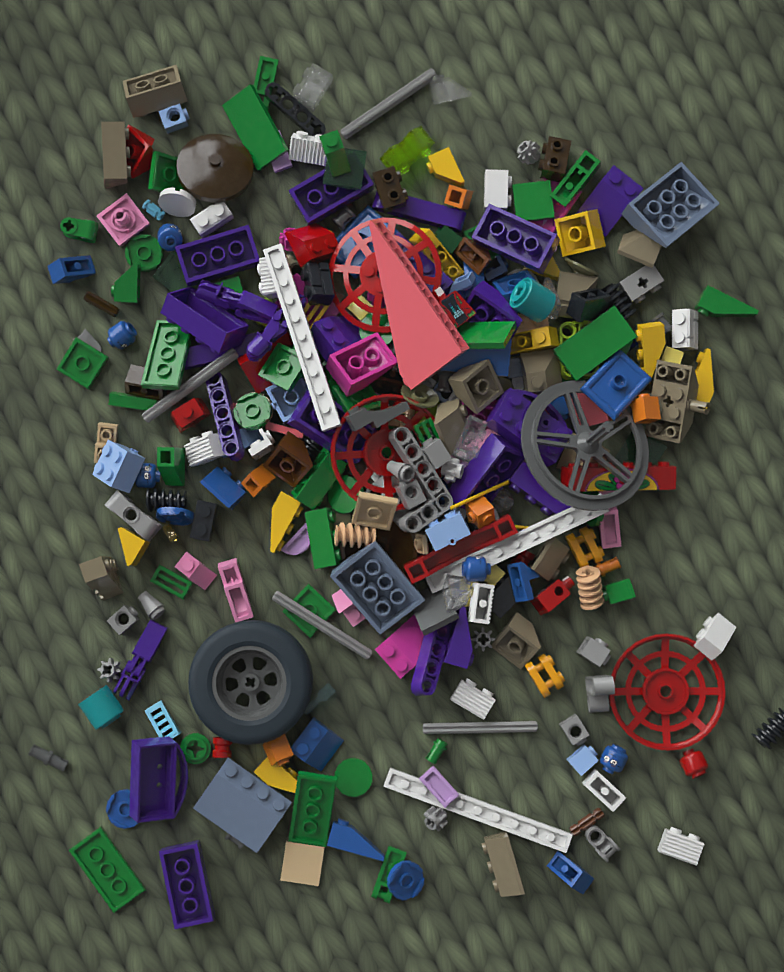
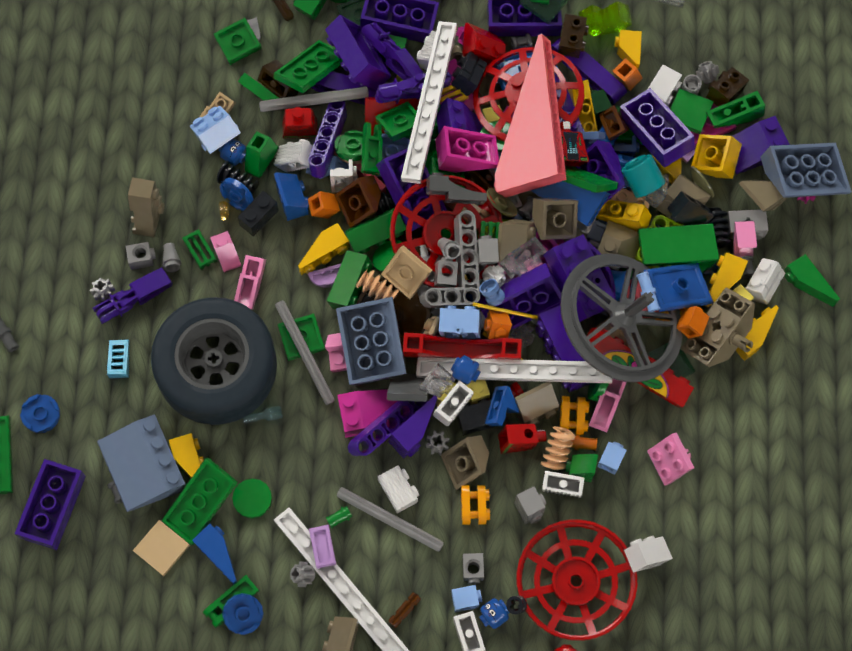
camera: 30 degrees right, 15 degrees down
(101, 708) = (75, 314): teal piece -> none
(121, 335) = (283, 35): blue head -> none
(132, 545) = (186, 199): yellow slope -> none
(143, 524) = (204, 182): light grey beam -> none
(147, 799) = (63, 407): dark purple piece -> none
(202, 742) = (131, 387): green gear -> none
(222, 748) = (155, 406): red wheel -> none
(273, 408) = (371, 149): none -> green hinge
(278, 751) = (201, 432): orange brick -> none
(316, 744) = (237, 450): blue slope -> none
(460, 487) = (492, 292): none -> medium blue wheel
(523, 172) = (692, 84): none -> light grey wheel
(536, 798) = (404, 610): none -> reddish brown axle
(596, 409) = (646, 286): none -> light blue pin
(597, 691) = (514, 541): light grey beam -> none
(610, 616) = (563, 484): none -> white brick
(629, 749) = (511, 602): none -> black bush
(638, 566) = (612, 457): none -> light blue brick
(647, 301) = (744, 238): none -> bright pink slope
(690, 541) = (670, 459): none -> bright pink plate

